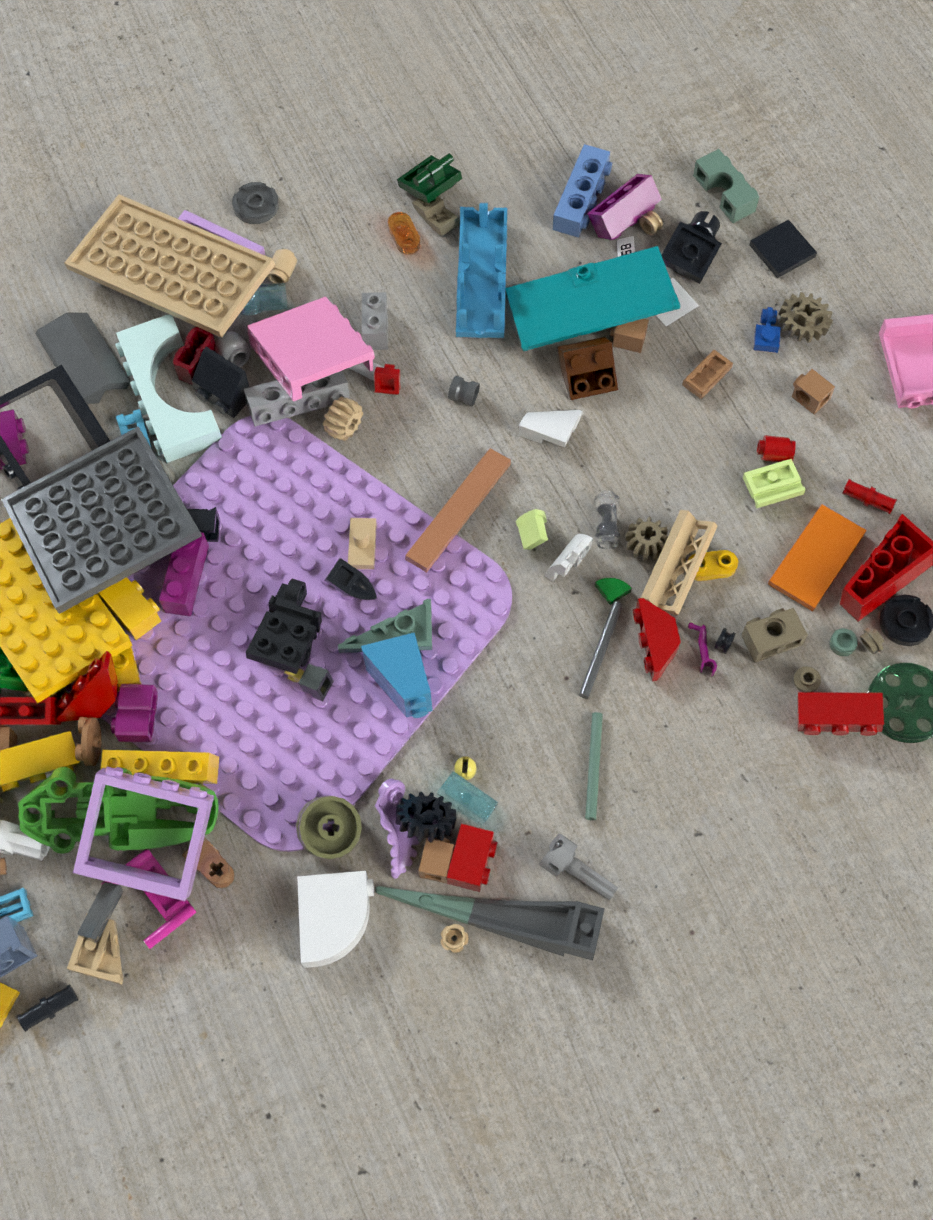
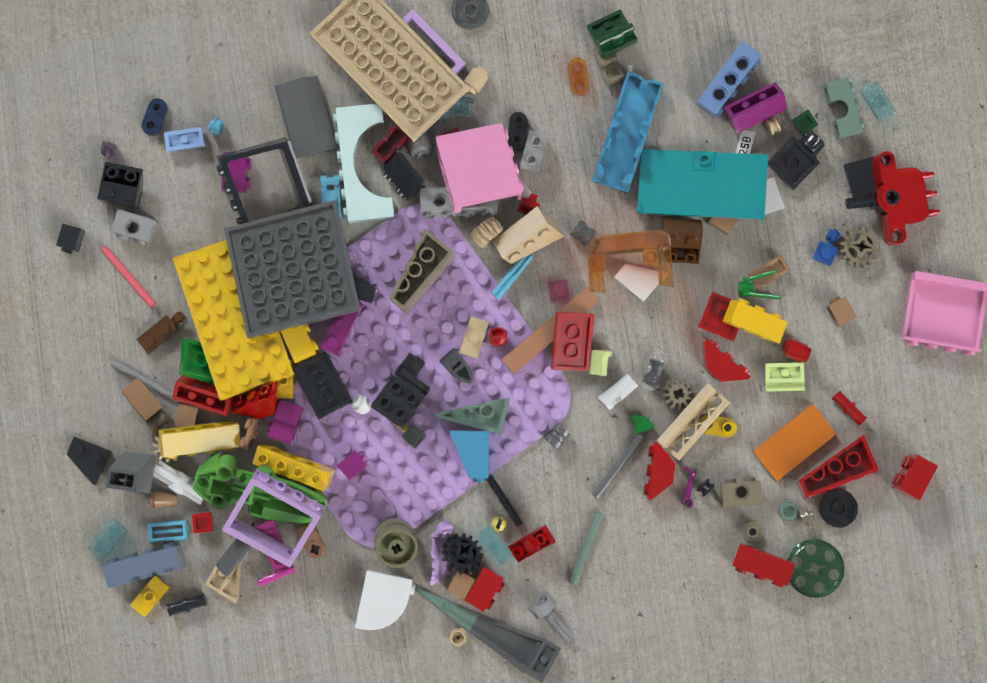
camera: 15 degrees right, 20 degrees up
(48, 884) = (202, 522): none -> red plate
(175, 654) = (322, 385): none -> black tile
(235, 663) = (361, 404): none -> white plate
(242, 736) = (354, 464): none -> magenta brick
(272, 479) = (425, 266): none -> dark tan wedge
(349, 305) = (517, 130): none -> black plate
(389, 461) = (511, 276): none -> medium azure axle
(393, 530) = (498, 337): none -> red tile
(395, 407) = (528, 235): none -> tan wedge
(454, 464) = (558, 290): none -> clear pink plate
(463, 736) = (504, 500): none -> black bar
(490, 511) = (572, 341): none -> red plate
(508, 632) = (557, 436): none -> dark grey wheel
(520, 772) = (532, 543): none -> red slope
(552, 366) = (652, 243): none -> clear orange windscreen
(670, 437) = (713, 317): none -> red plate
(686, 209) = (804, 122): none -> dark green plate
(688, 397) = (746, 288): none -> green plant
(690, 489) = (721, 364): none -> red slope
(712, 425) = (755, 320): none -> yellow brick
(763, 169) = (878, 101): none -> clear light blue plate
(827, 253) = (907, 196): none -> red piece

